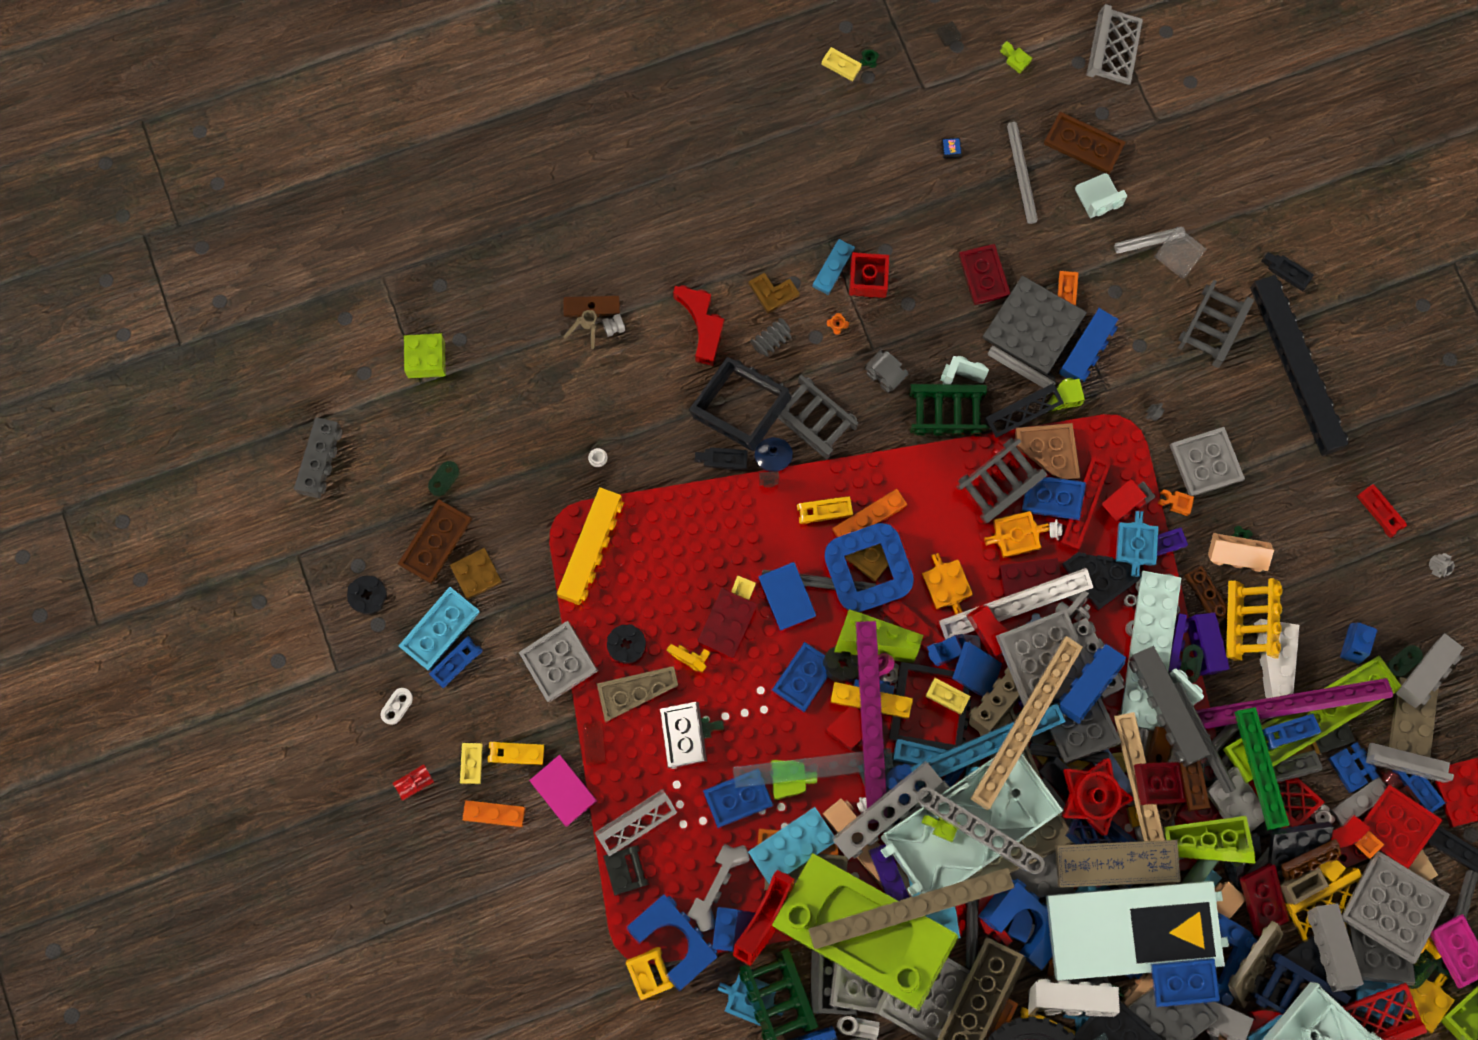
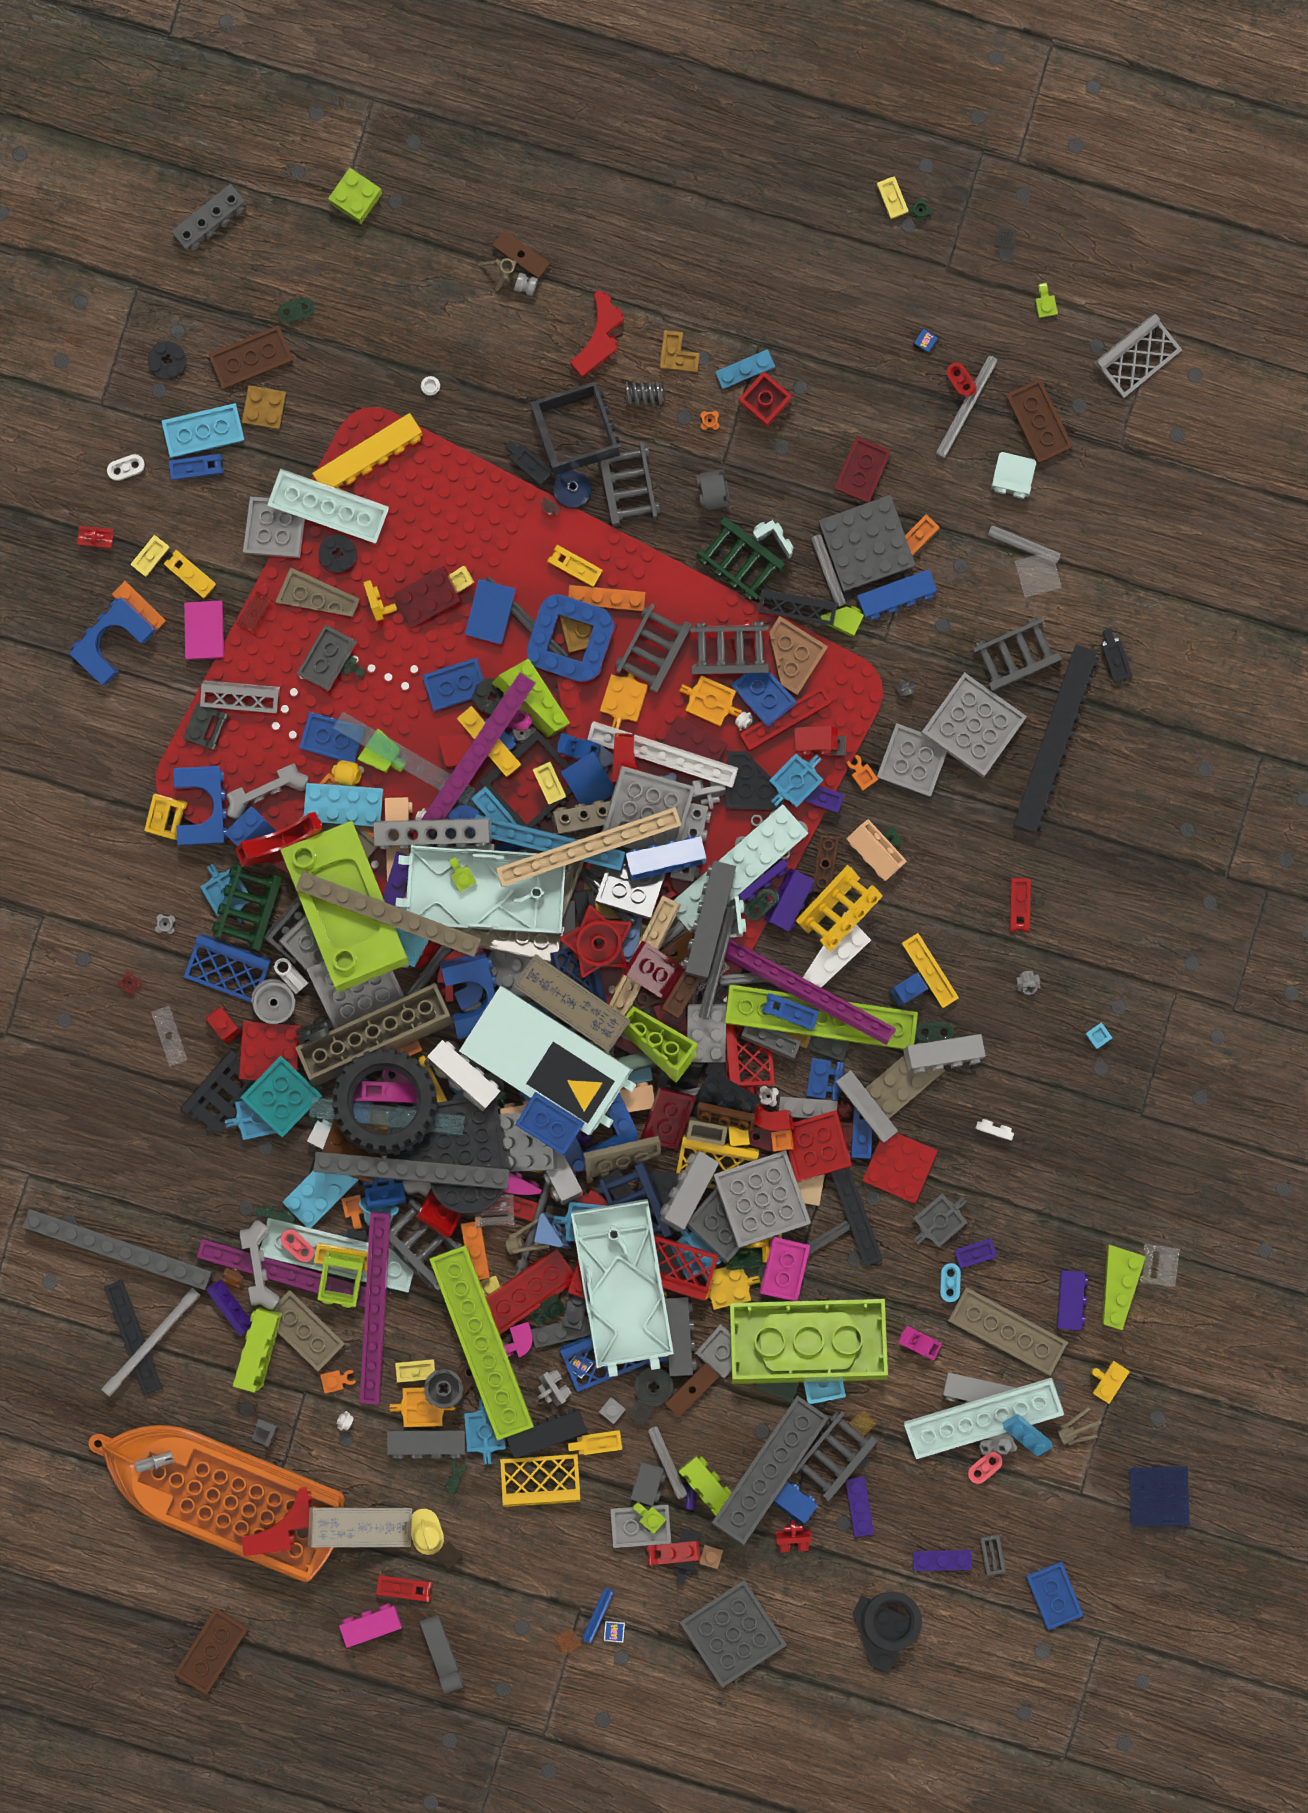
camera: 40 degrees right, 10 degrees up
(478, 883) = (88, 651): none -> blue arch
(589, 610) = (327, 506): none -> light aqua plate
(773, 817) = (346, 773): none -> yellow head
(954, 515) = (671, 647): none -> dark grey fence
(990, 832) = (475, 889): light grey beam -> none
(1004, 154) = (962, 381): none -> red plate
(1231, 399) = (973, 725): none -> light grey plate
(1261, 768) = (741, 1019): green plate -> none
(1357, 613) = (930, 970): none -> yellow plate

